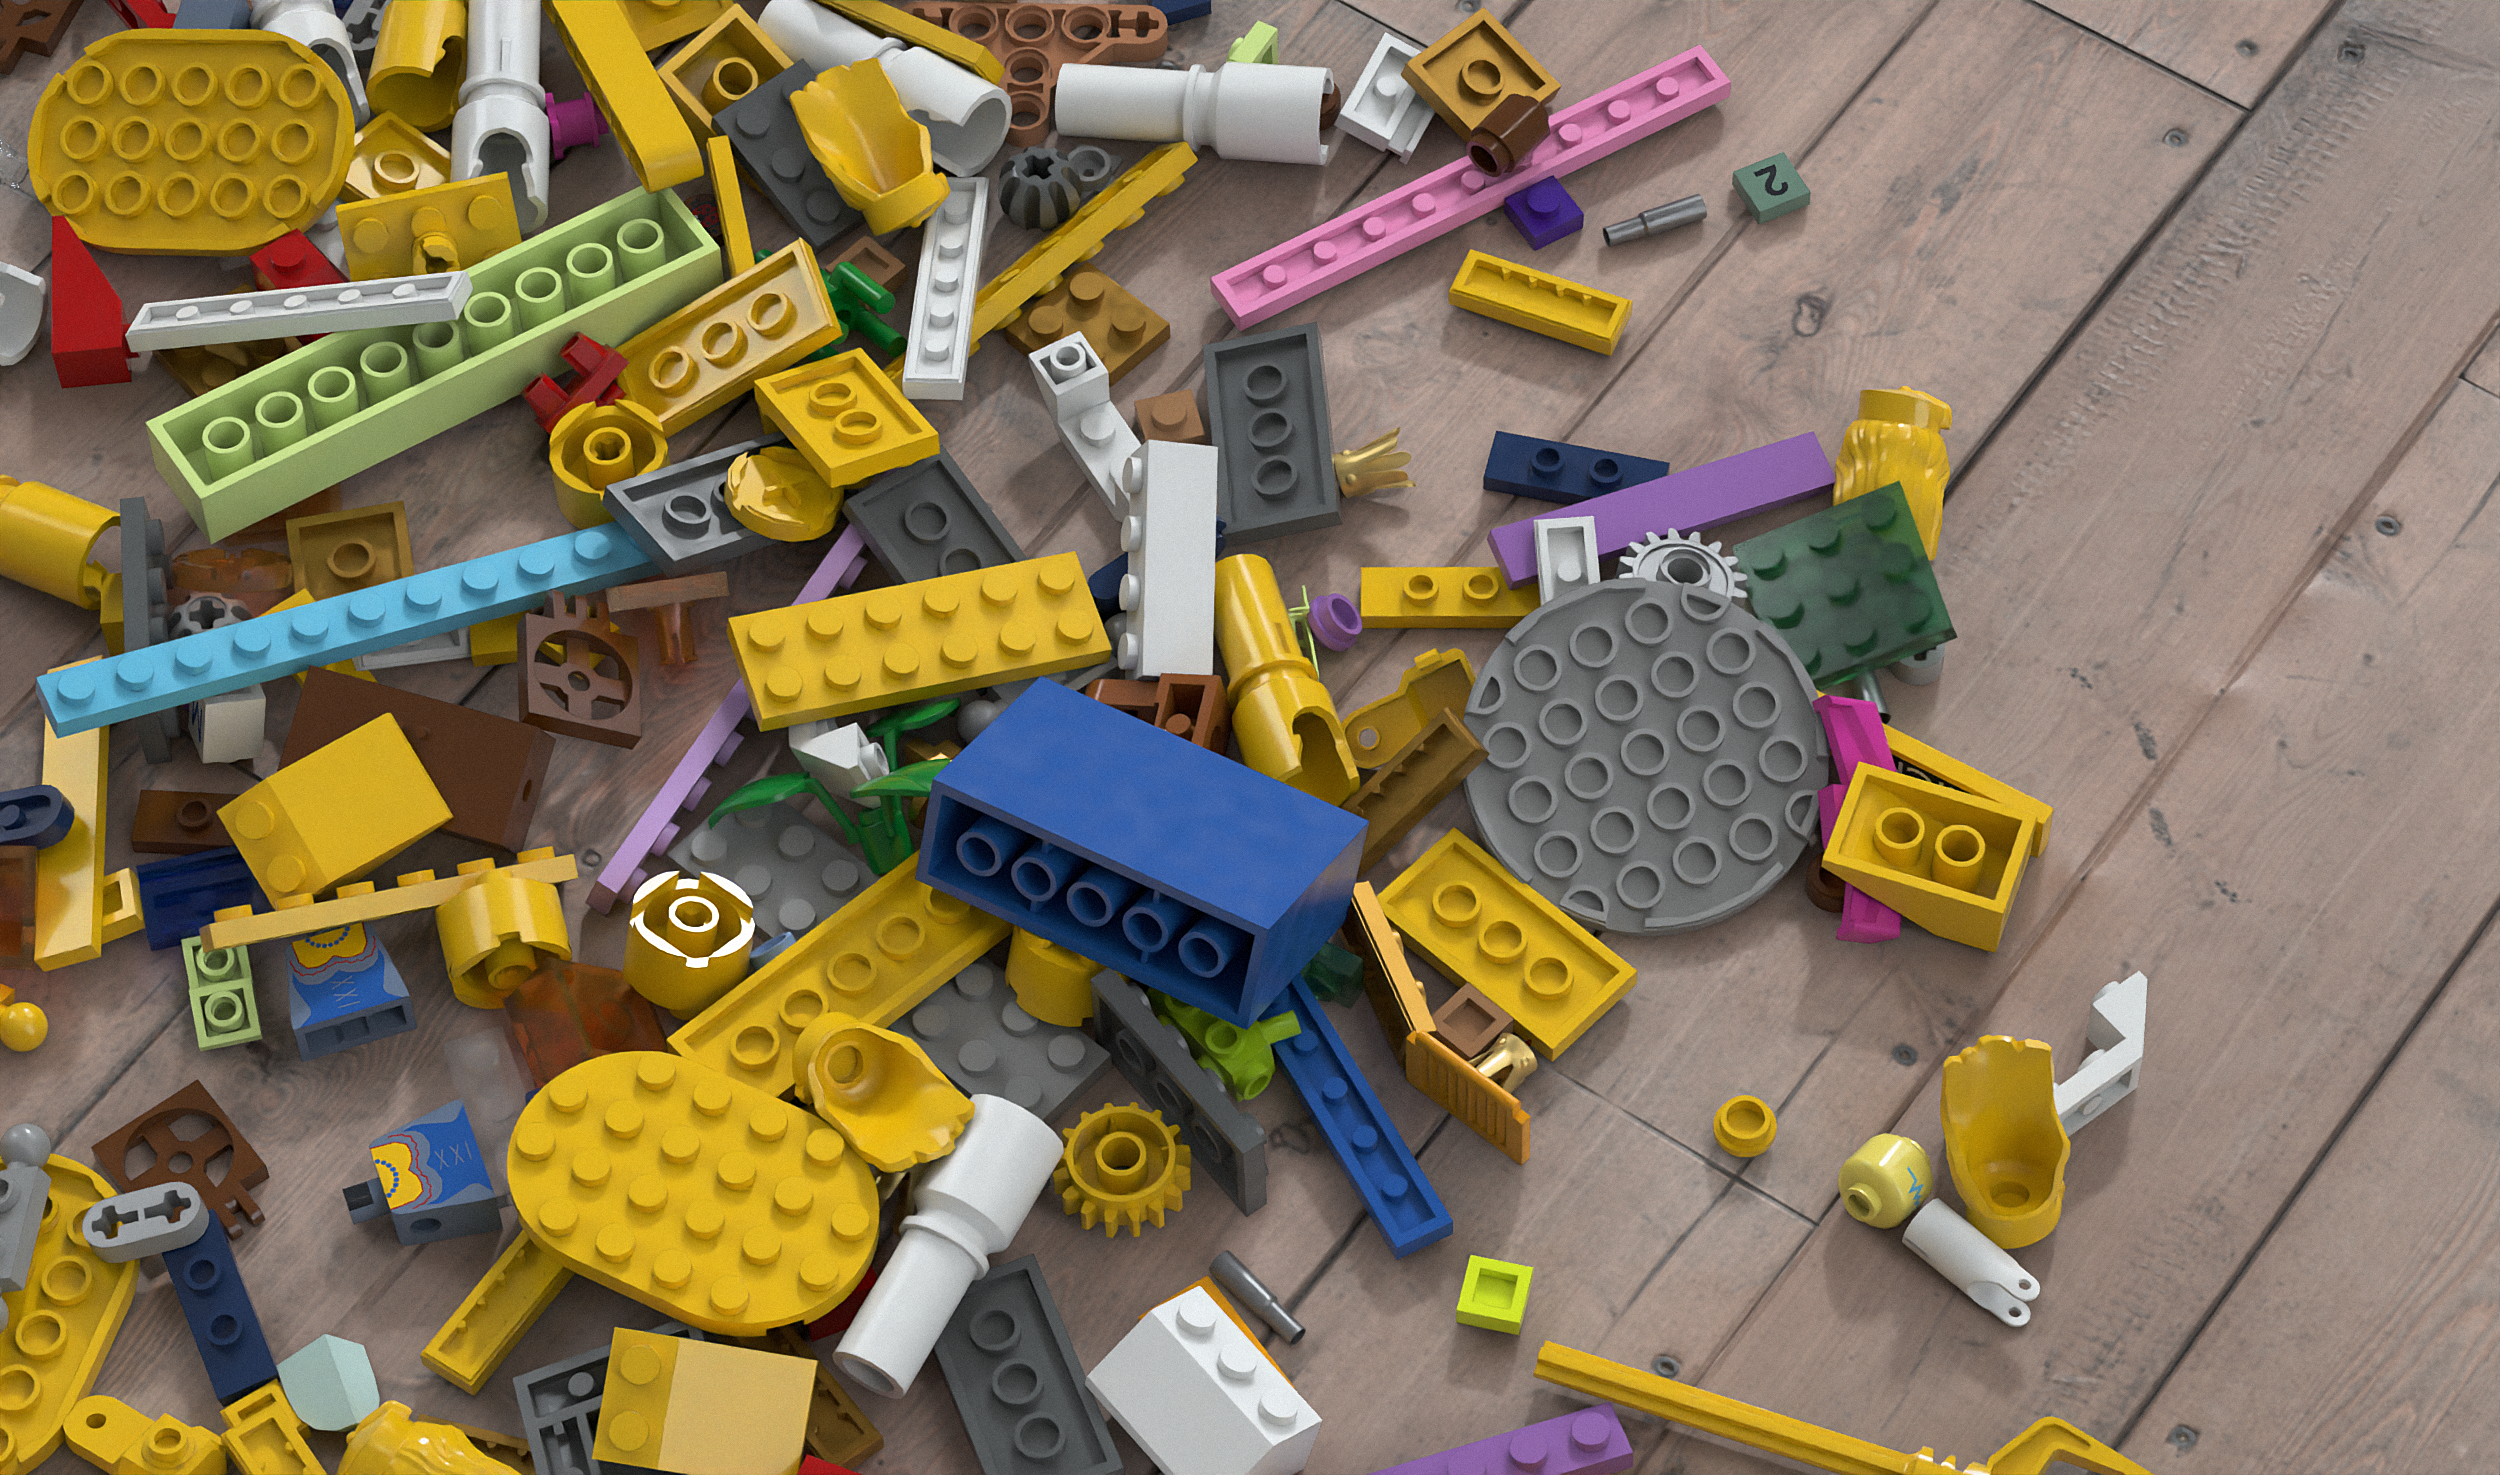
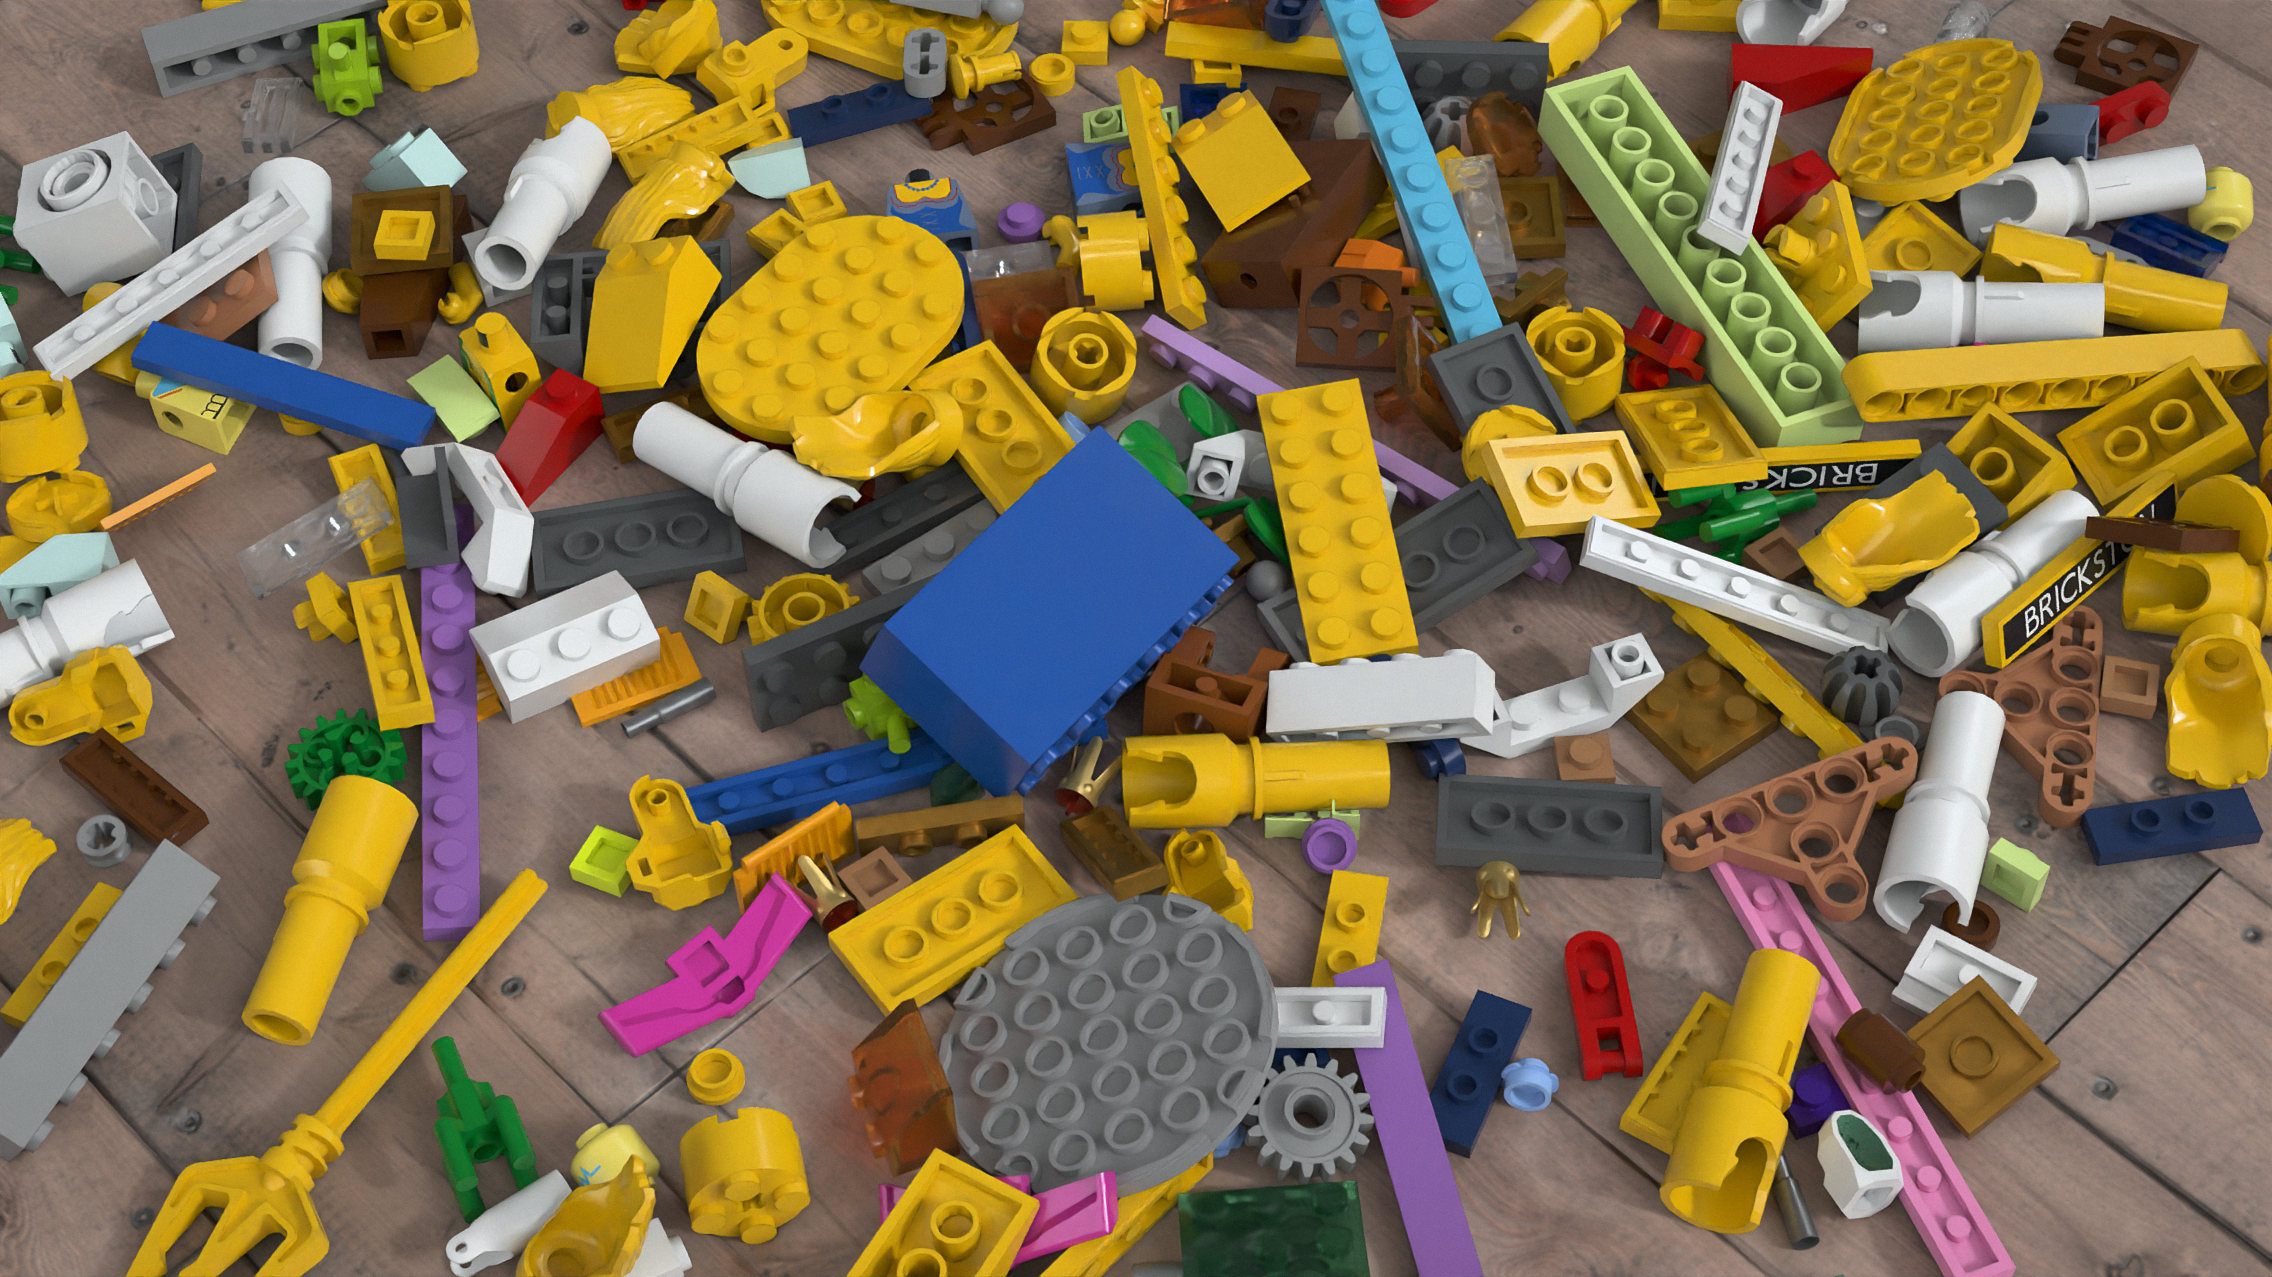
camera: 100 degrees right, 5 degrees down
(47, 1077) = (1086, 42): none -> yellow plate
(110, 1104) = (1052, 74): none -> yellow tile
(149, 1158) = (978, 72): none -> yellow pin
(355, 570) = (1481, 209): none -> clear plate
(394, 1330) = (816, 204): none -> yellow tile
(407, 1084) = (1021, 223): none -> medium lavender plate
(439, 1021) = (1065, 234): none -> yellow arm
(482, 673) = (1376, 255): none -> orange piece
(497, 514) = (1533, 296): none -> pearl gold hips
(1110, 1269) = (717, 607): none -> yellow tile
(1234, 189) = (1776, 836): none -> nougat beam
(1480, 376) = (1601, 1006): none -> red plate
(1485, 1205) = (677, 854): none -> yellow piece
(1583, 424) = (1528, 1084): none -> light blue plate
(1614, 242) = (1736, 1121): none -> yellow piece
(1621, 160) = (1858, 1165): none -> white rock
(1626, 1151) = (711, 974): none -> dark pink plate
(1740, 923) = (903, 1092): none -> clear orange slope
(1880, 1041) = (743, 1175): none -> yellow brick
(1882, 1315) = (476, 1129): none -> green plant

